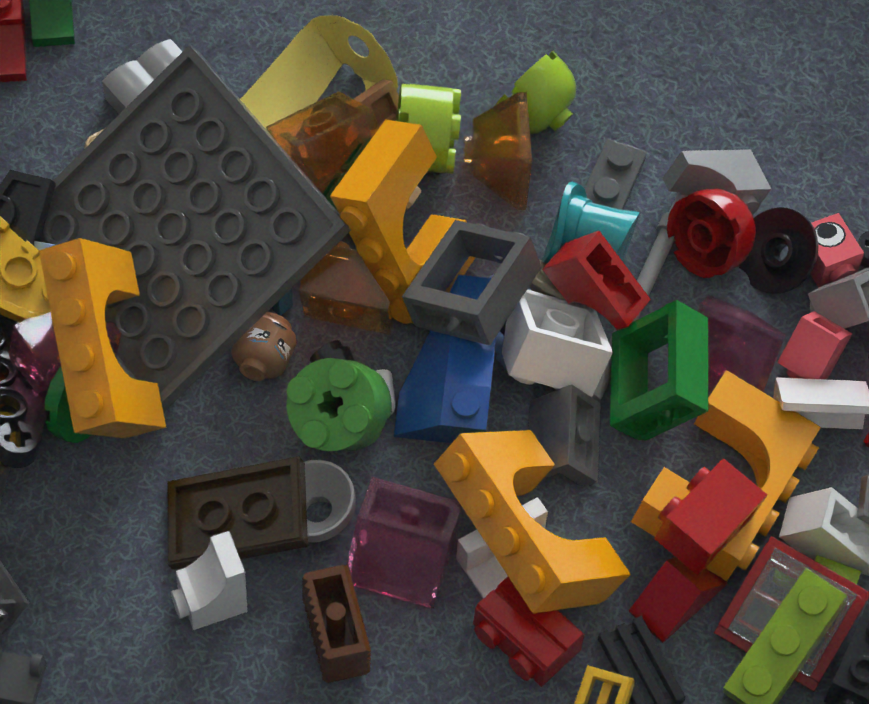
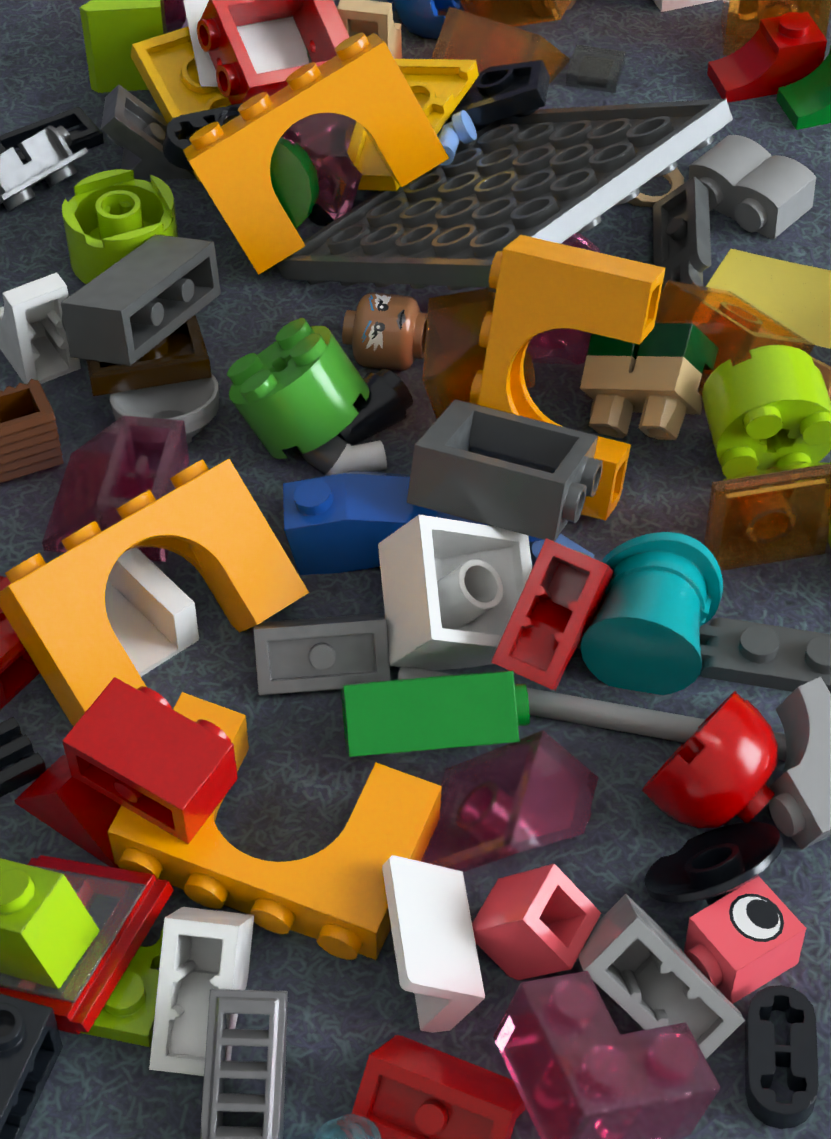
camera: 85 degrees right, 10 degrees down
(102, 513) = (114, 217): none -> lime brick
(217, 495) = (141, 299): none -> dark grey brick

